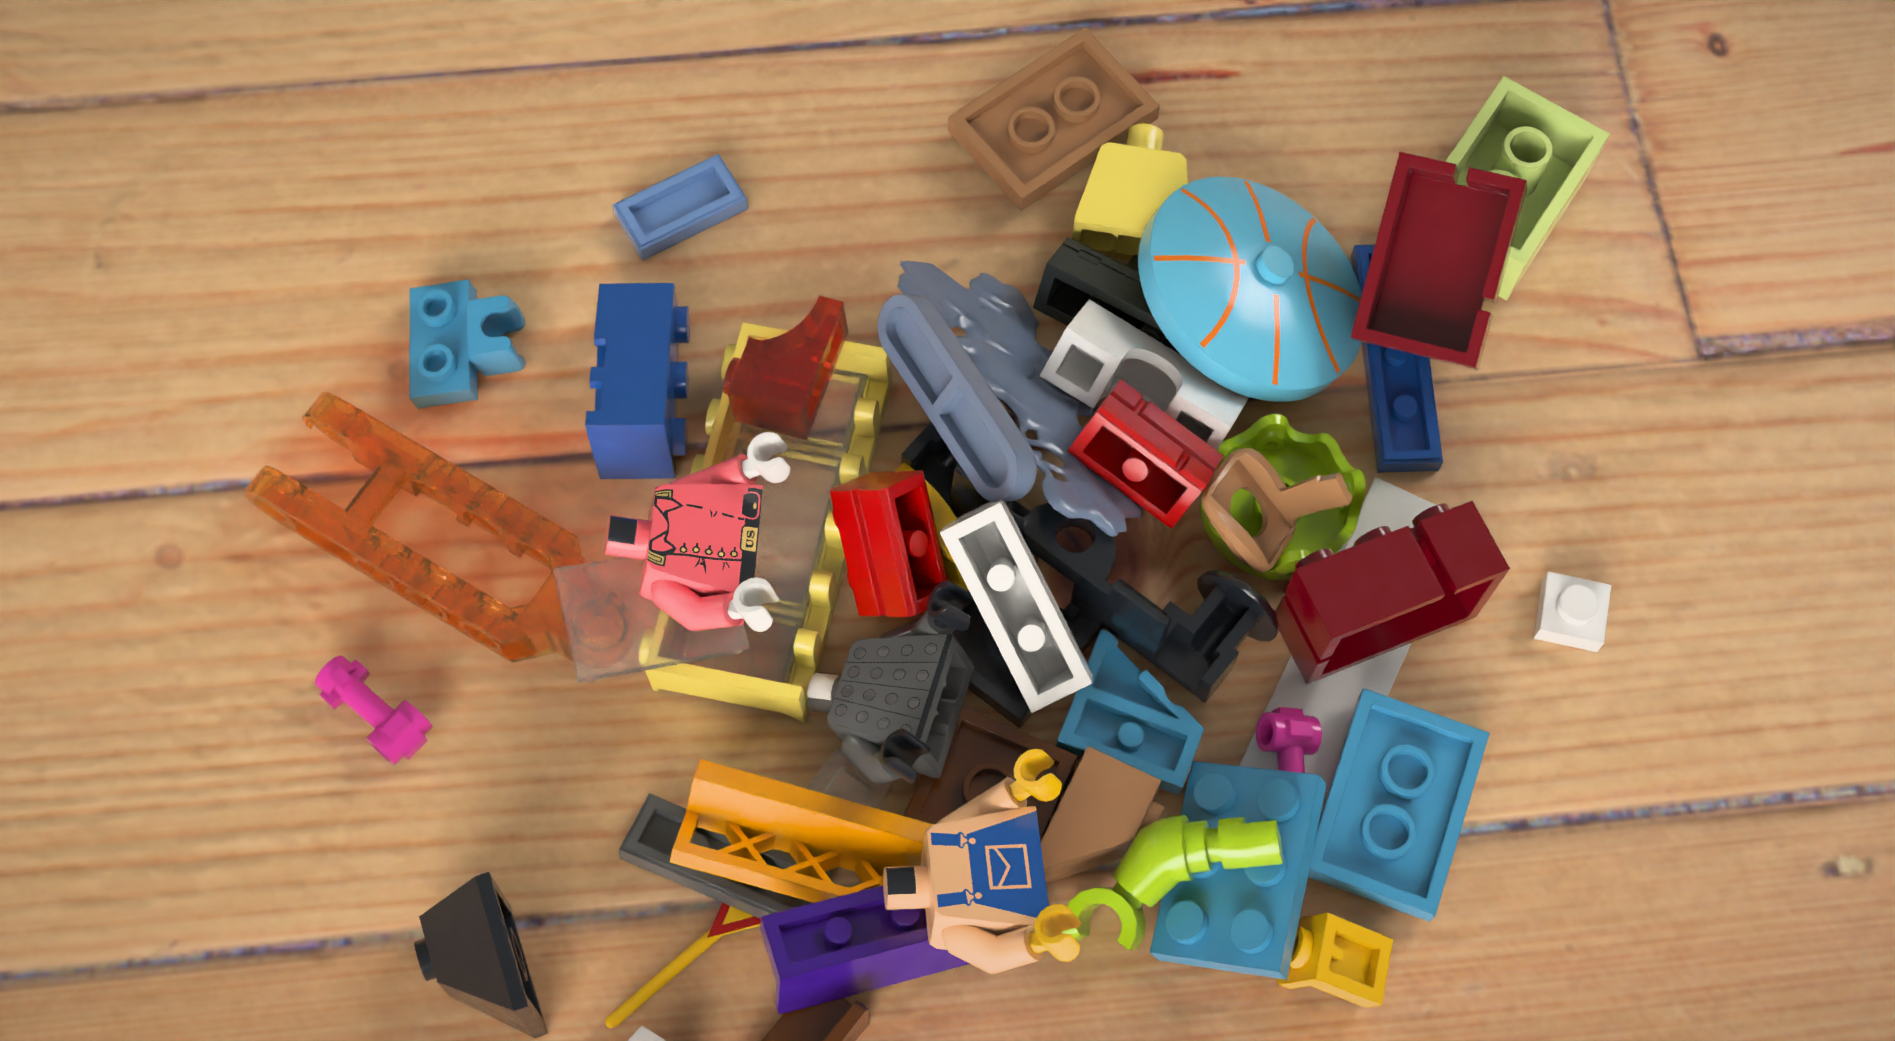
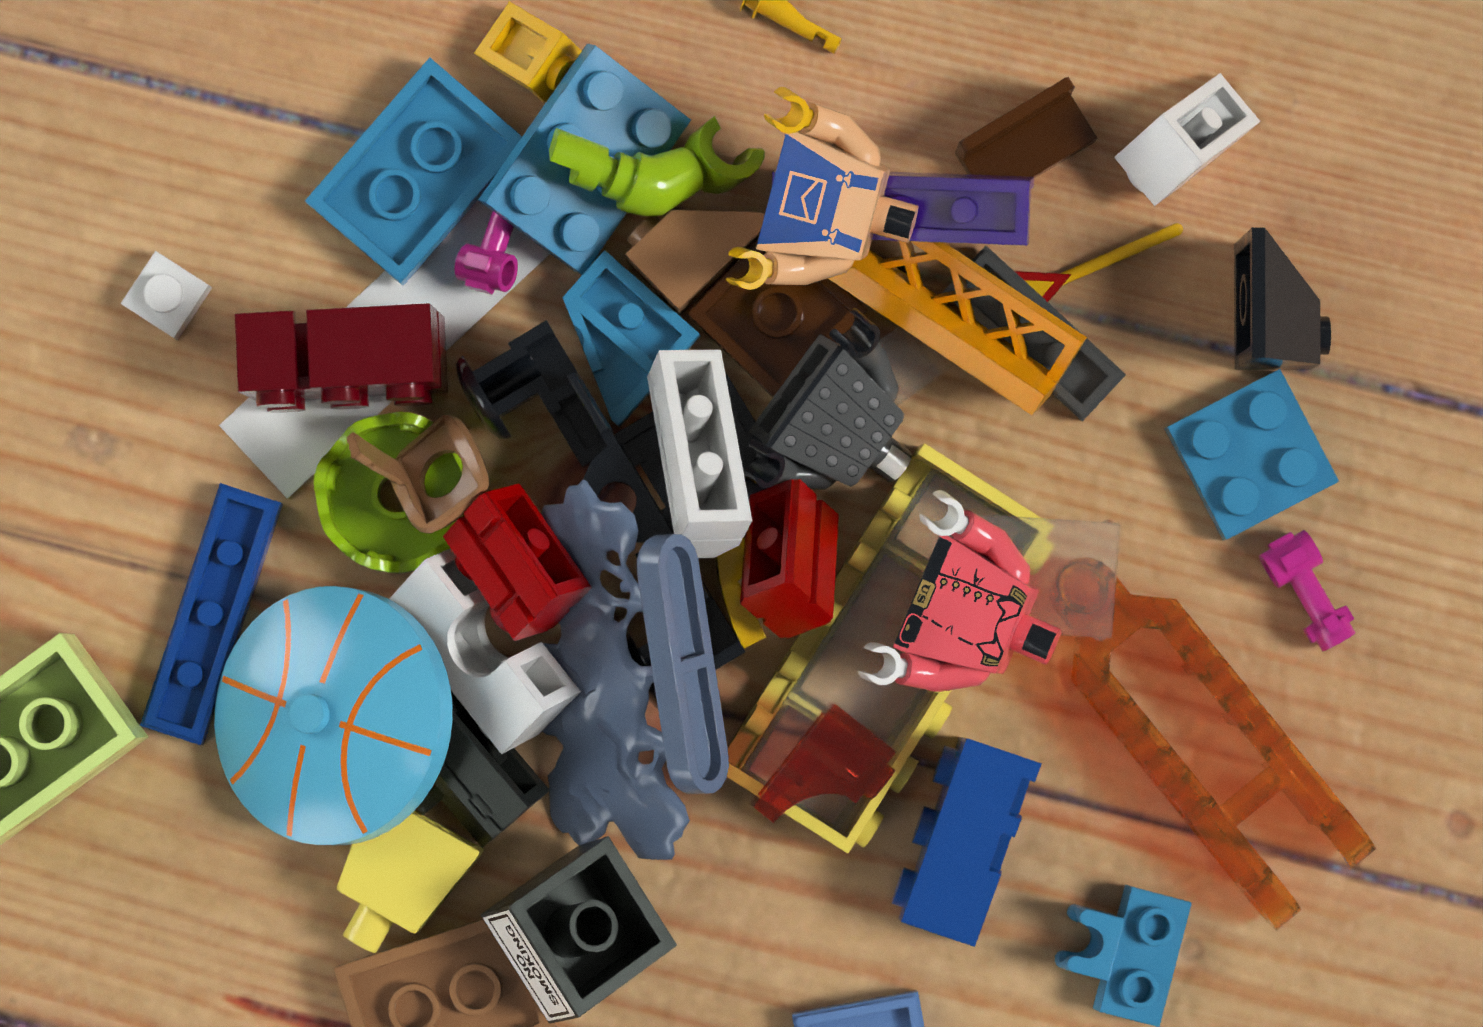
camera: 155 degrees left, 20 degrees up
(467, 818) = (1251, 455): none -> dark azure plate
(961, 185) = (579, 930): none -> pearl dark grey brick
(1439, 260) = (154, 657): dark red piece -> none

